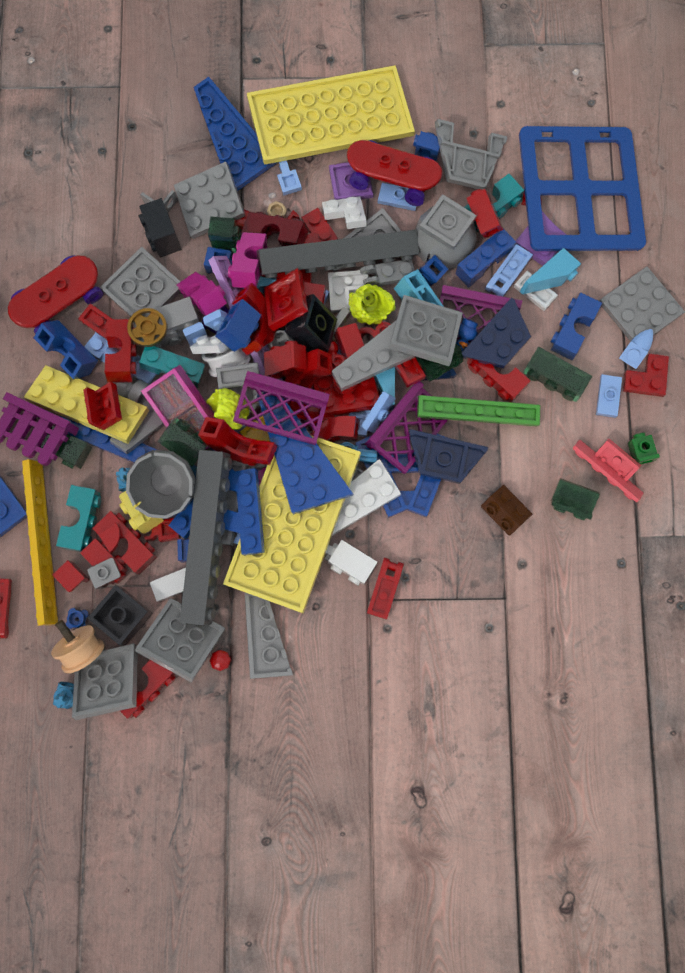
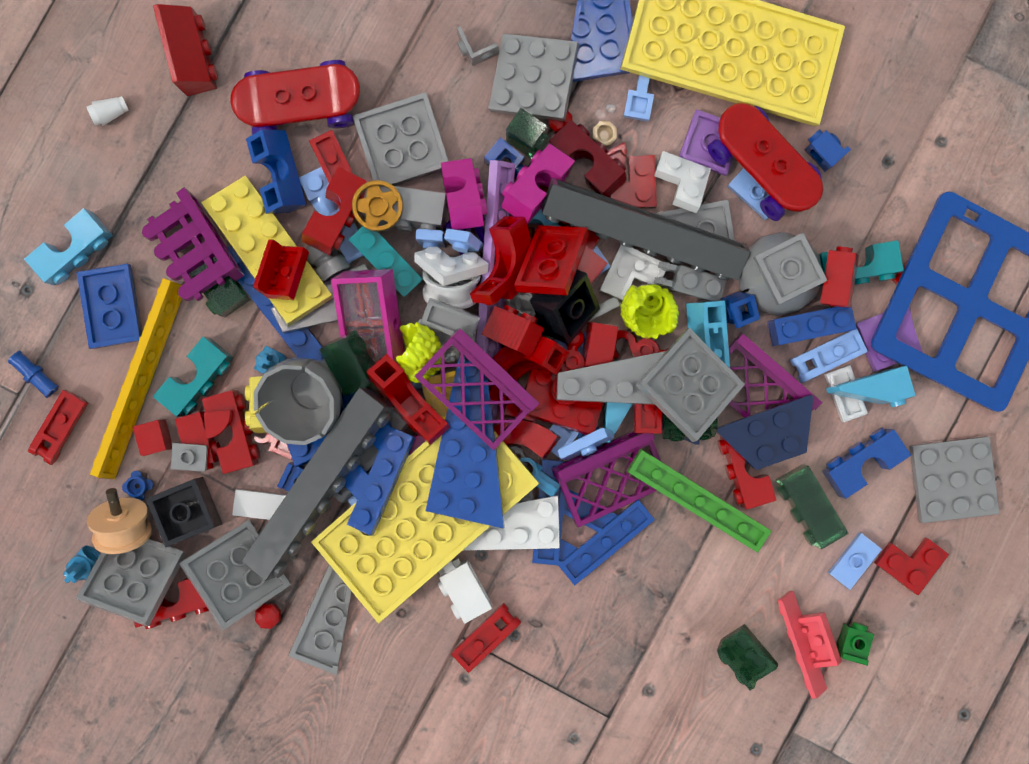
camera: 25 degrees right, 10 degrees up
(159, 228) = (457, 82): black brick -> none
(238, 326) = (480, 265): blue brick -> none
(443, 456) = (630, 533): dark blue wing -> none
(466, 332) = (738, 407): blue animal -> none
(467, 164) = (855, 199): light grey wing -> none
(506, 510) = (666, 625): reddish brown bracket -> none
(637, 348) = (918, 527): light blue plate -> none

